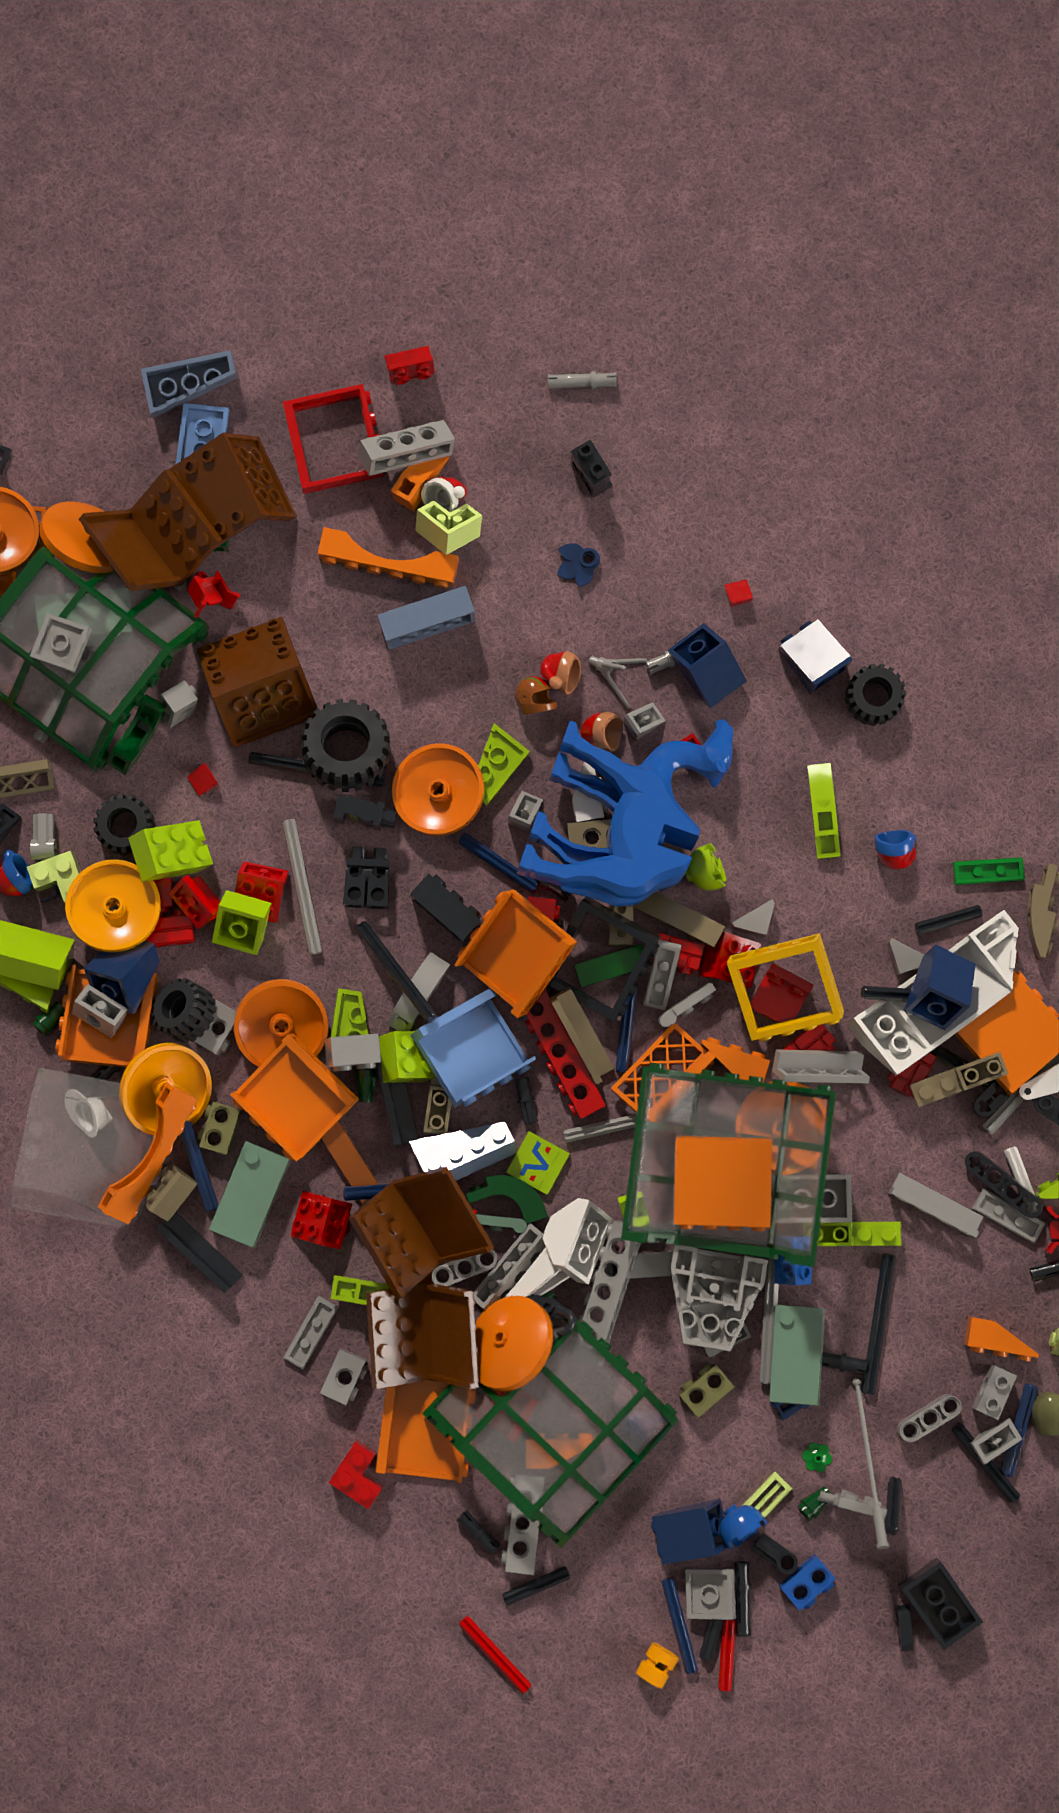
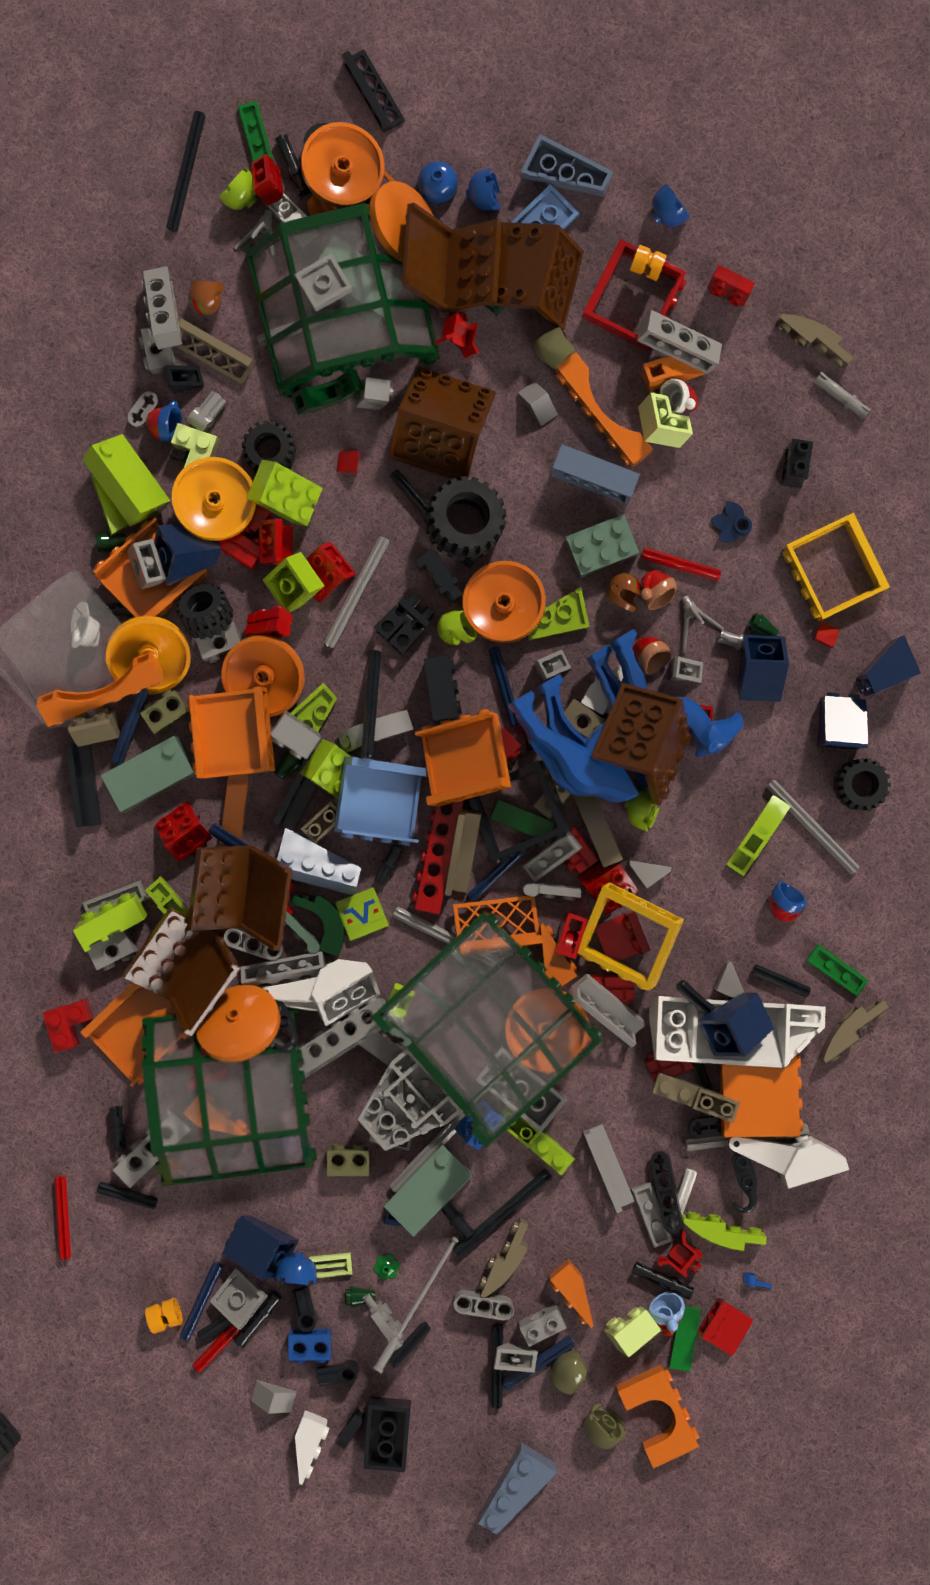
camera: 40 degrees right, 5 degrees up
(84, 480) = (437, 183): none -> blue cylinder
(131, 455) = (483, 191): none -> blue cylinder
(249, 973) = (269, 622): none -> red brick
(301, 539) = (553, 347): none -> olive piece
(302, 342) = (668, 208): none -> blue cylinder
(321, 1350) = (109, 920): none -> lime wedge
(324, 402) = (648, 262): none -> light orange wheel
(326, 596) = (538, 403): none -> light grey slope
(411, 849) = (451, 628): none -> lime helmet
(482, 674) = (601, 546): none -> sand green brick
(507, 350) = (809, 331): none -> dark tan slope
(563, 634) = (681, 564): none -> red axle
(656, 801) = (645, 736): none -> reddish brown bracket
(676, 630) = (762, 626): none -> dark green cone
(714, 497) = (864, 551): none -> yellow window
(723, 1182) = (474, 1034): orange panel -> none
(734, 1029) = (570, 935): none -> red arch
(813, 1658) = (273, 1397): none -> light grey slope
(814, 577) = (888, 668): none -> dark blue slope
(851, 1590) = (335, 1373): none -> black piece
(866, 765) = (814, 828): none -> light grey axle
(873, 1665) = (307, 1438): none -> white slope
(918, 1370) = (503, 1266): none -> dark tan slope

